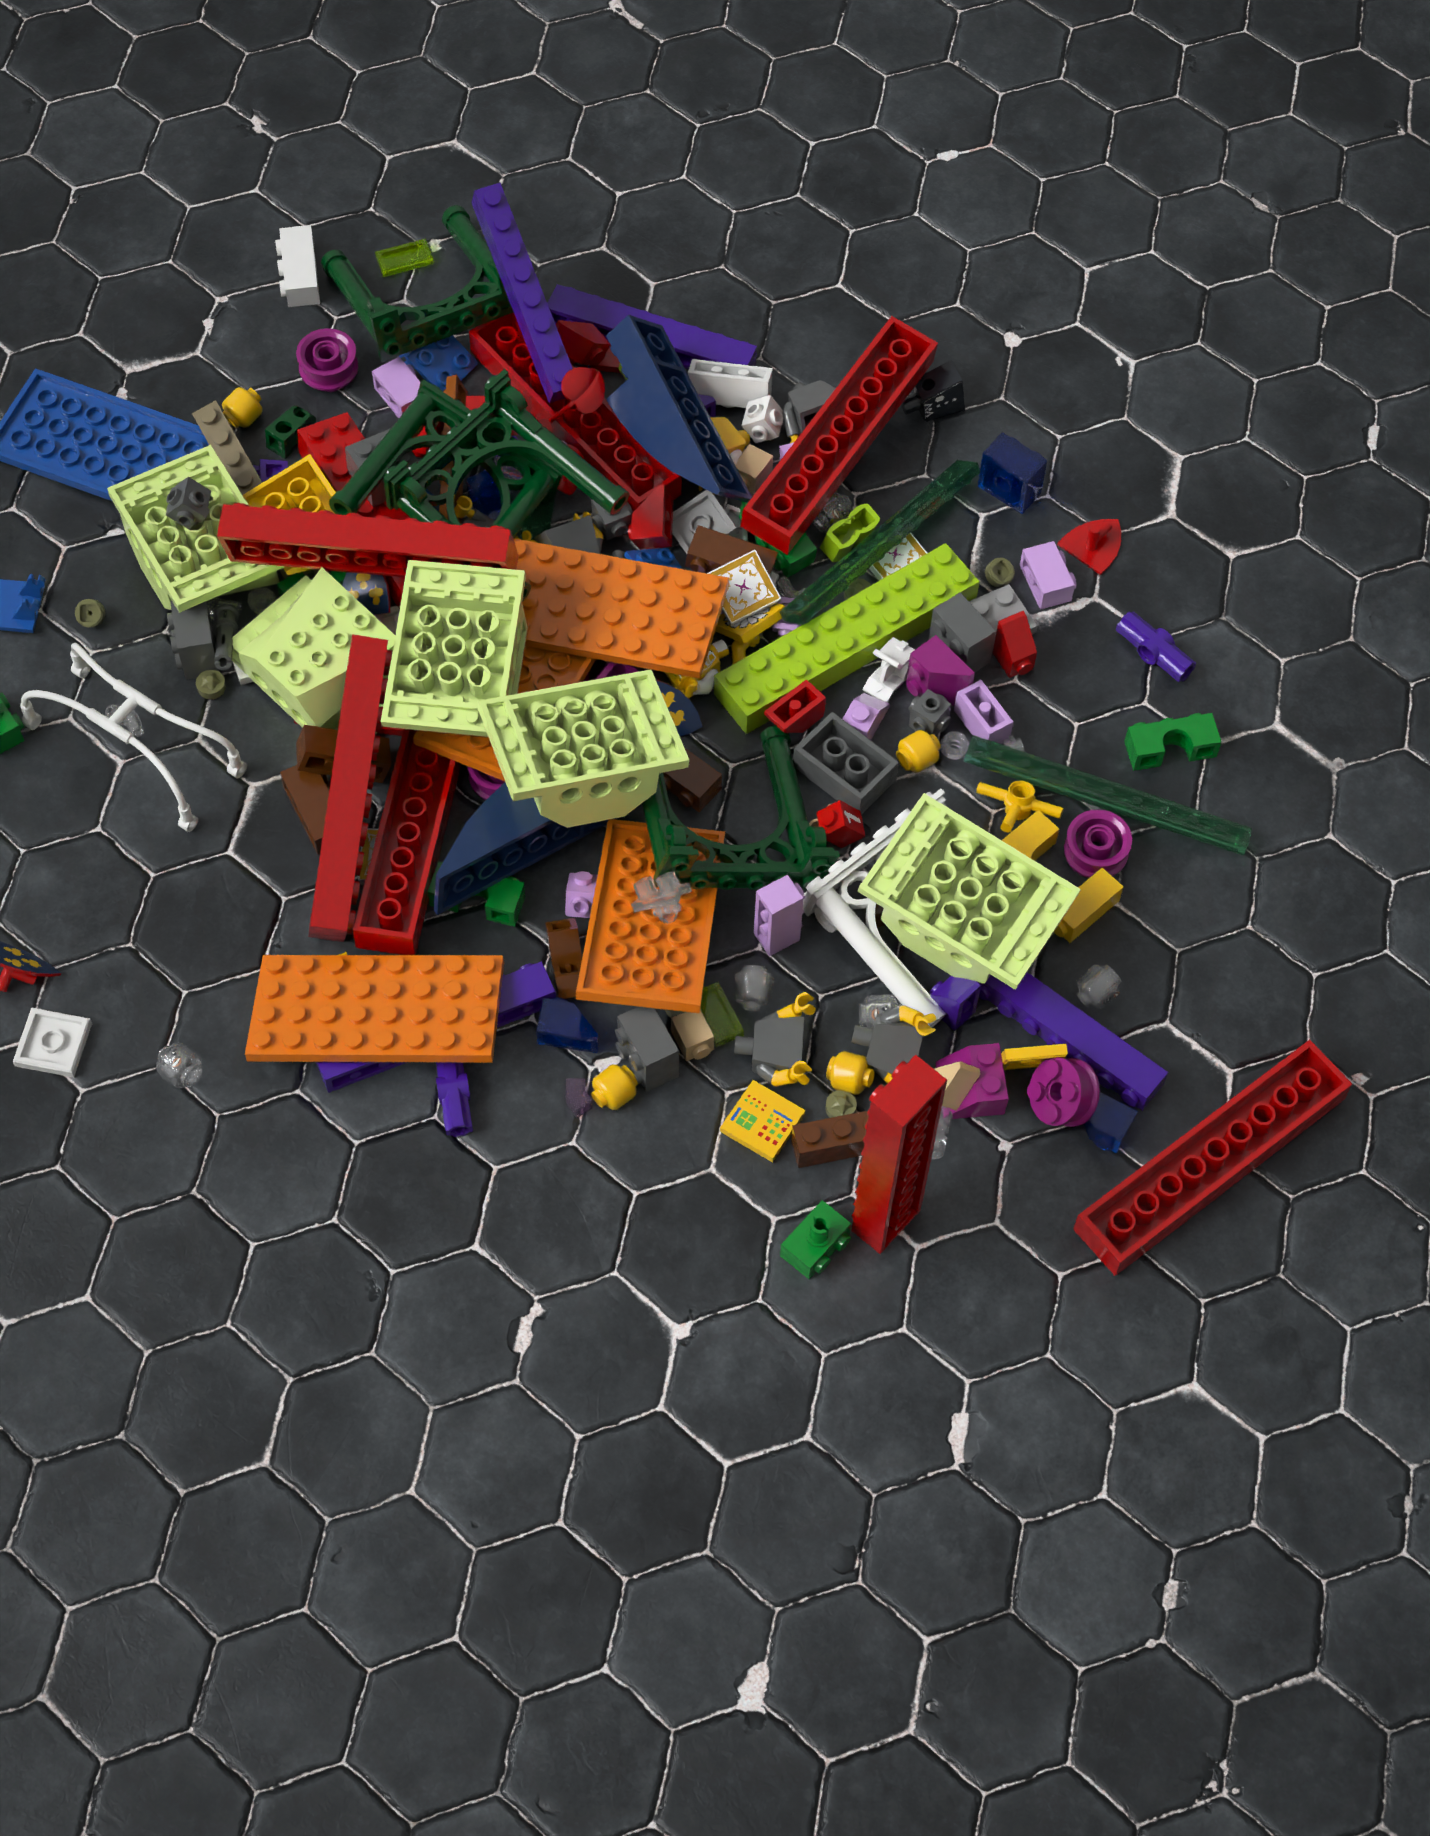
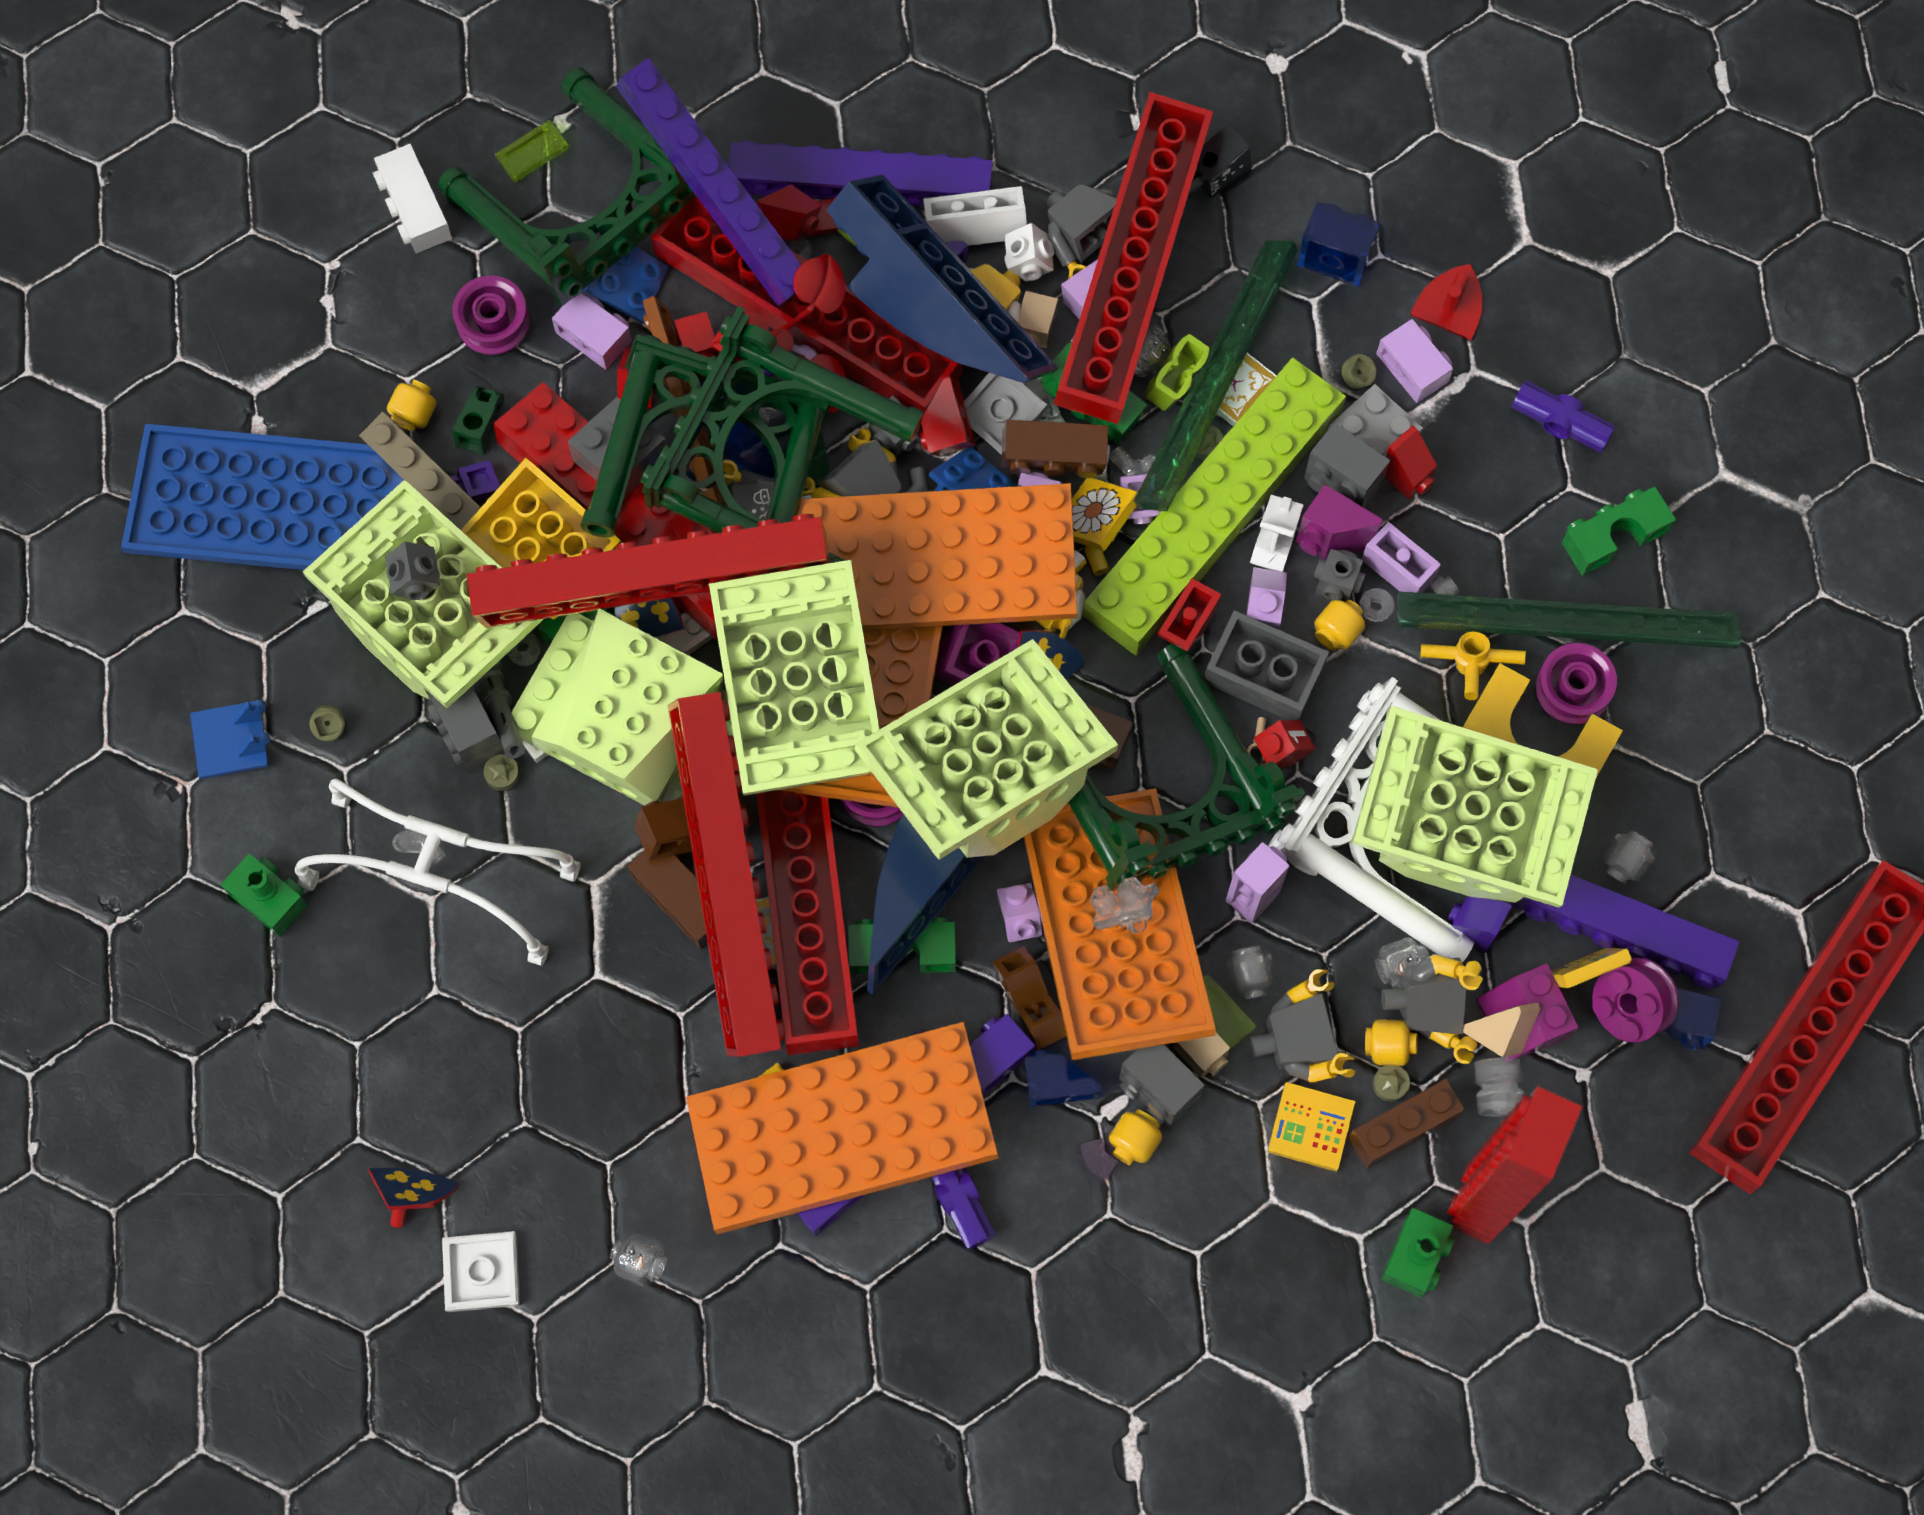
camera: 15 degrees left, 10 degrees up
(748, 589) = (1092, 479): tile -> none

